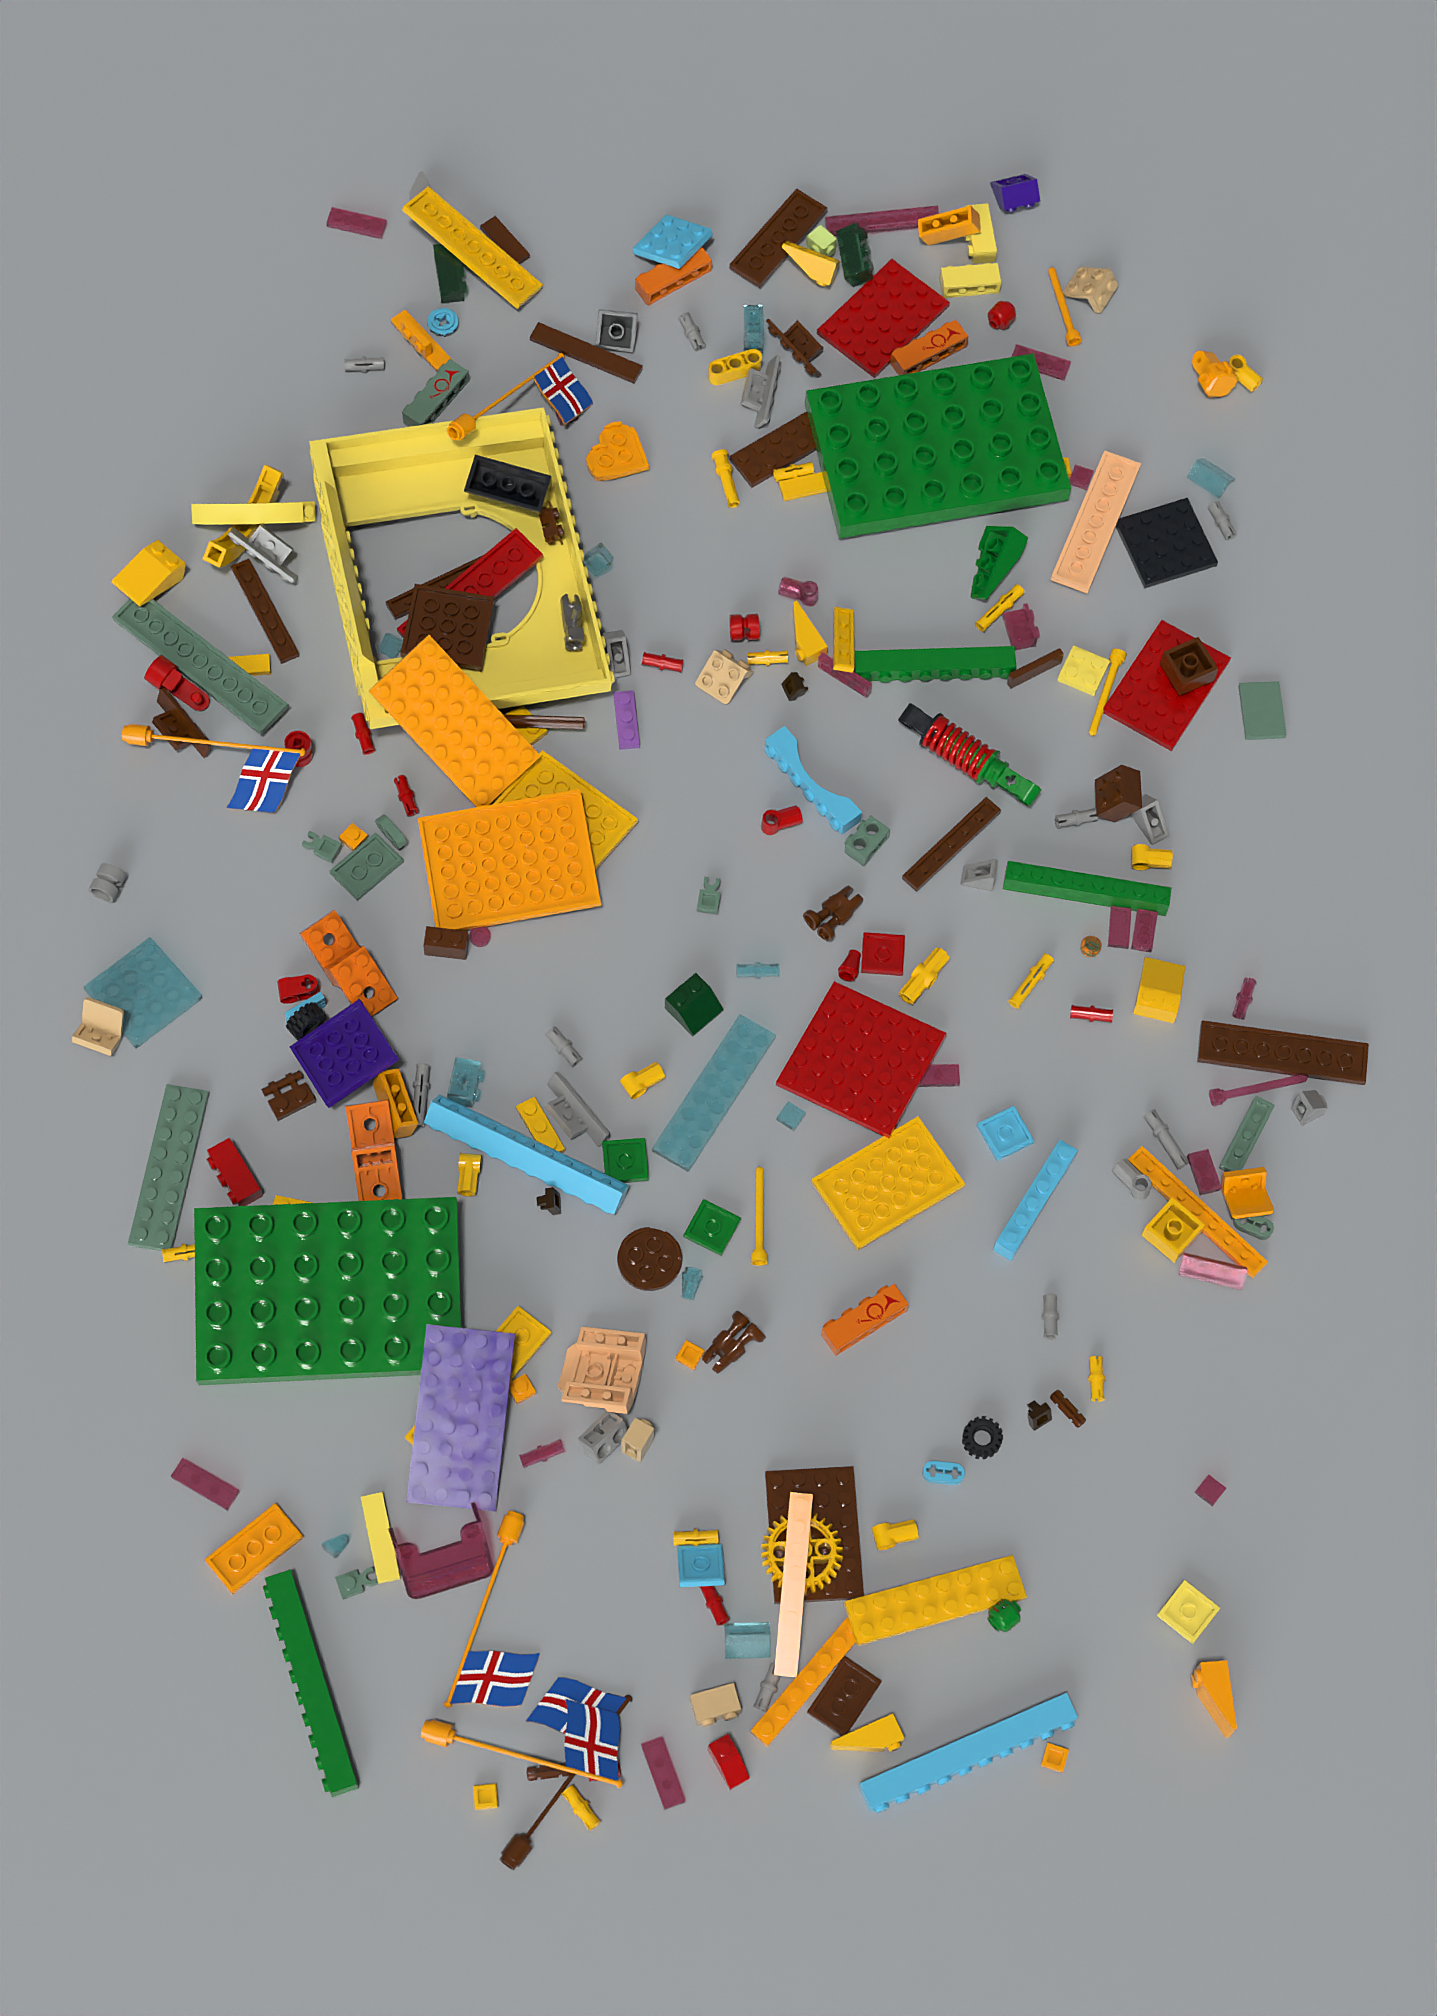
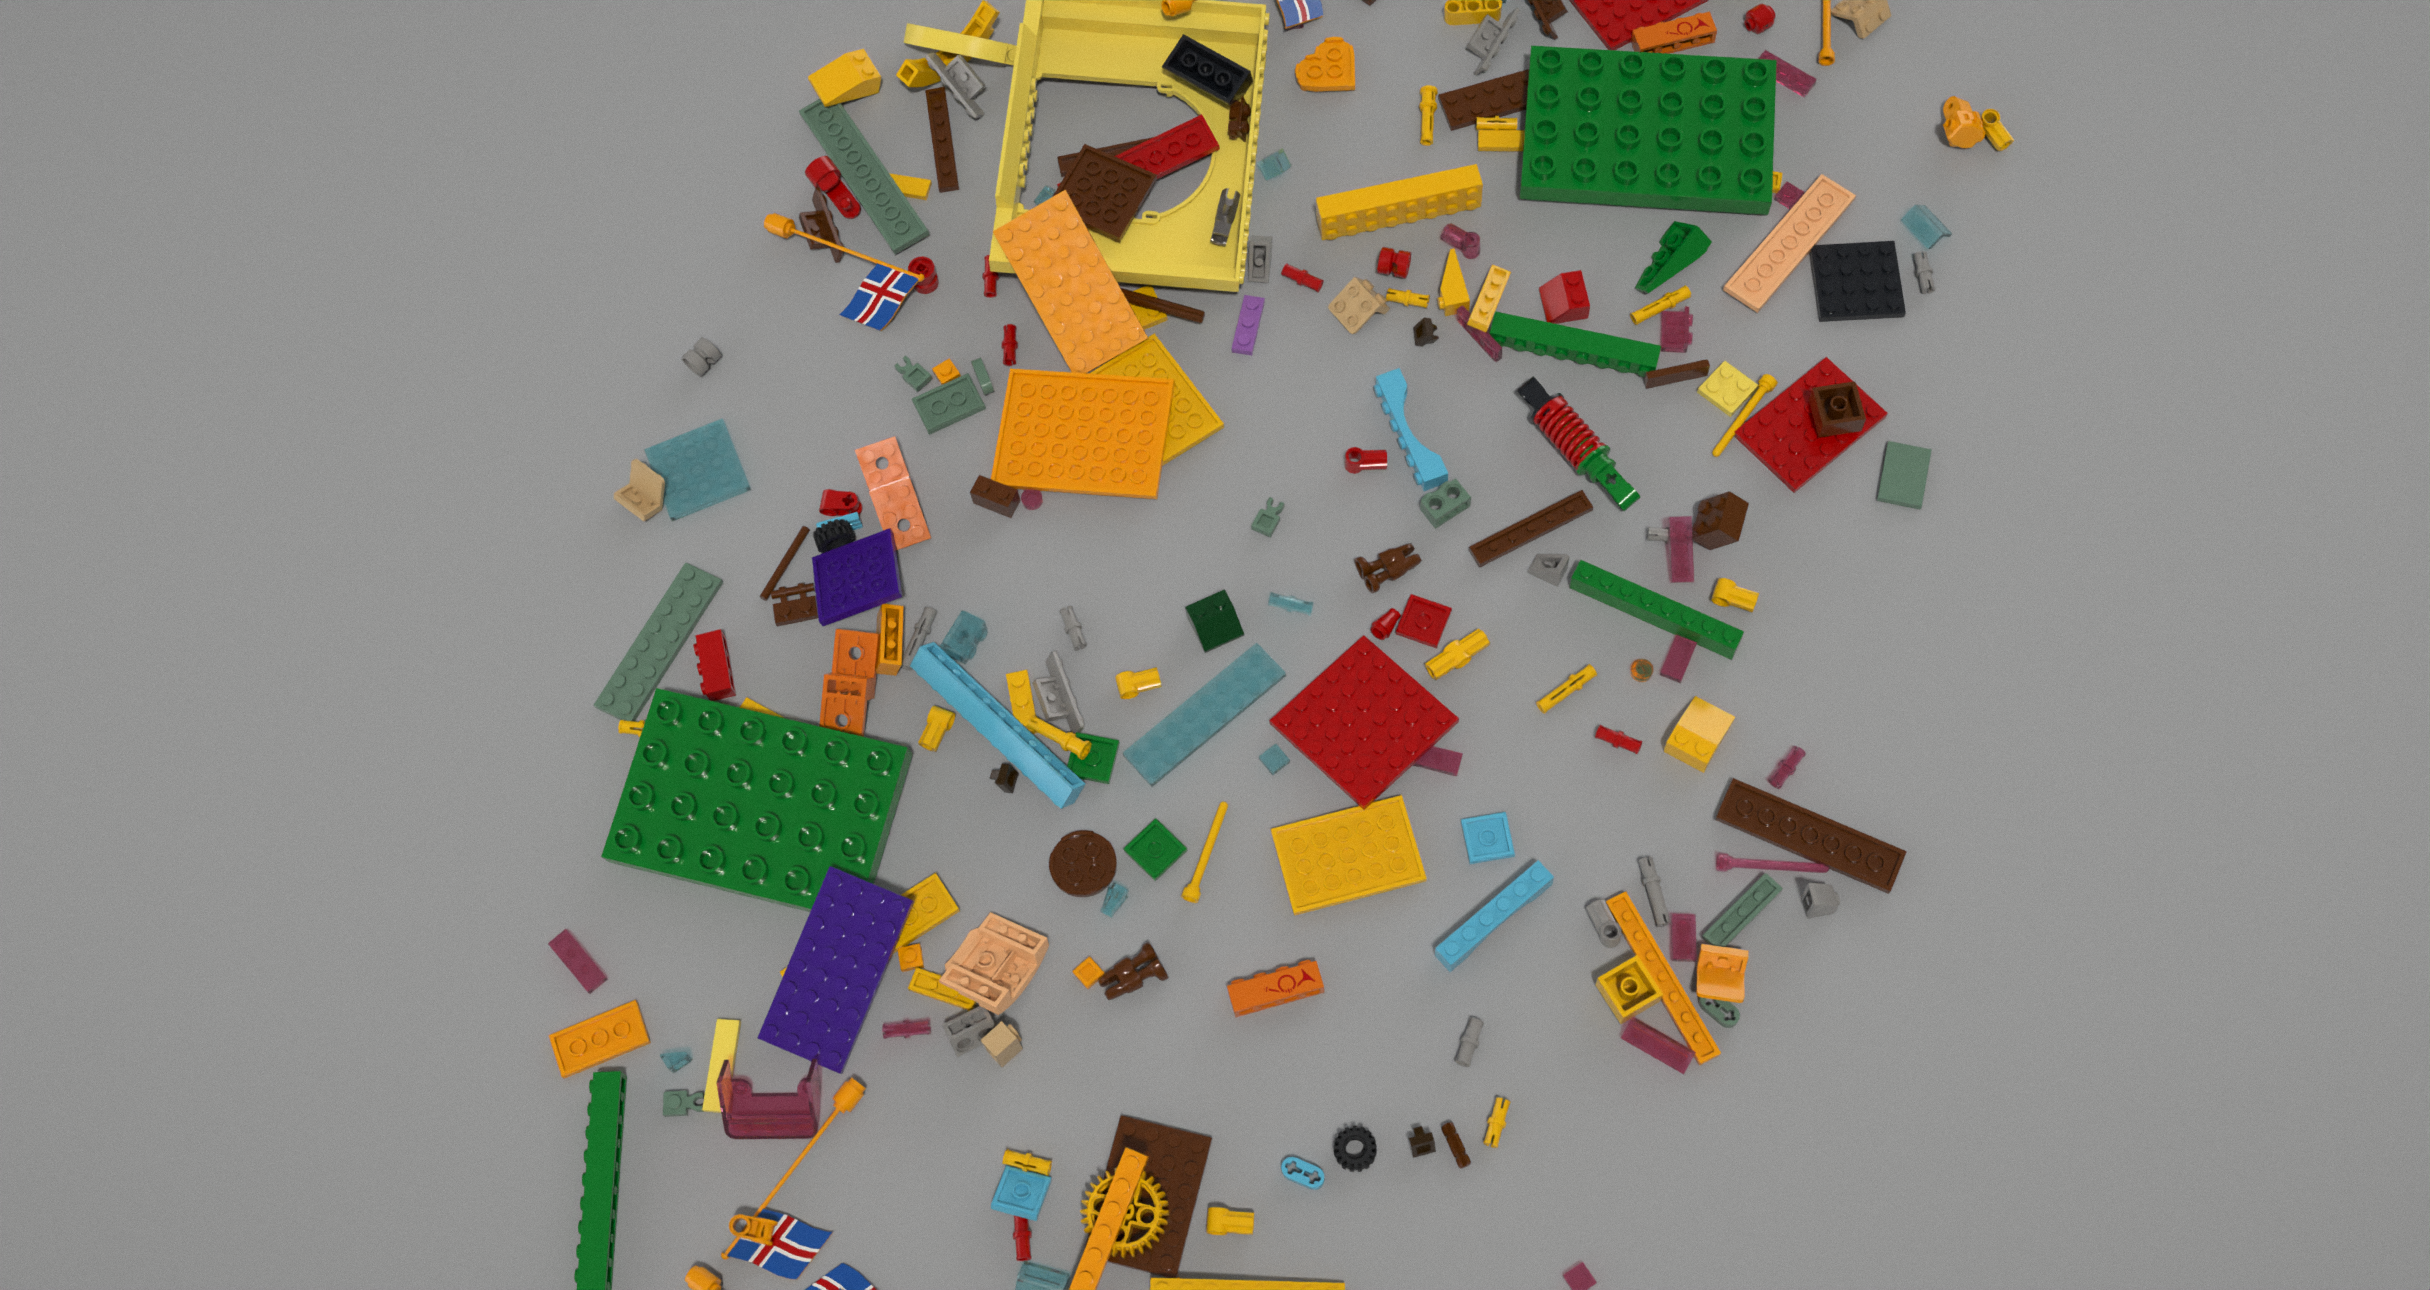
camera: 30 degrees right, 0 degrees up
(263, 1059) = (784, 563): none -> reddish brown bar
(470, 1671) = (757, 1230): none -> light orange piece
(554, 1409) = (928, 984): none -> yellow tile
(599, 1150) = (1067, 741): none -> yellow pin
(730, 569) = (1399, 202): none -> yellow brick
(912, 622) = (1565, 298): none -> red slope
(1091, 828) = (1681, 549): none -> clear pink plate
(1144, 930) = (1703, 669): clear pink plate -> none
(1151, 820) = (1747, 556): light grey slope -> none

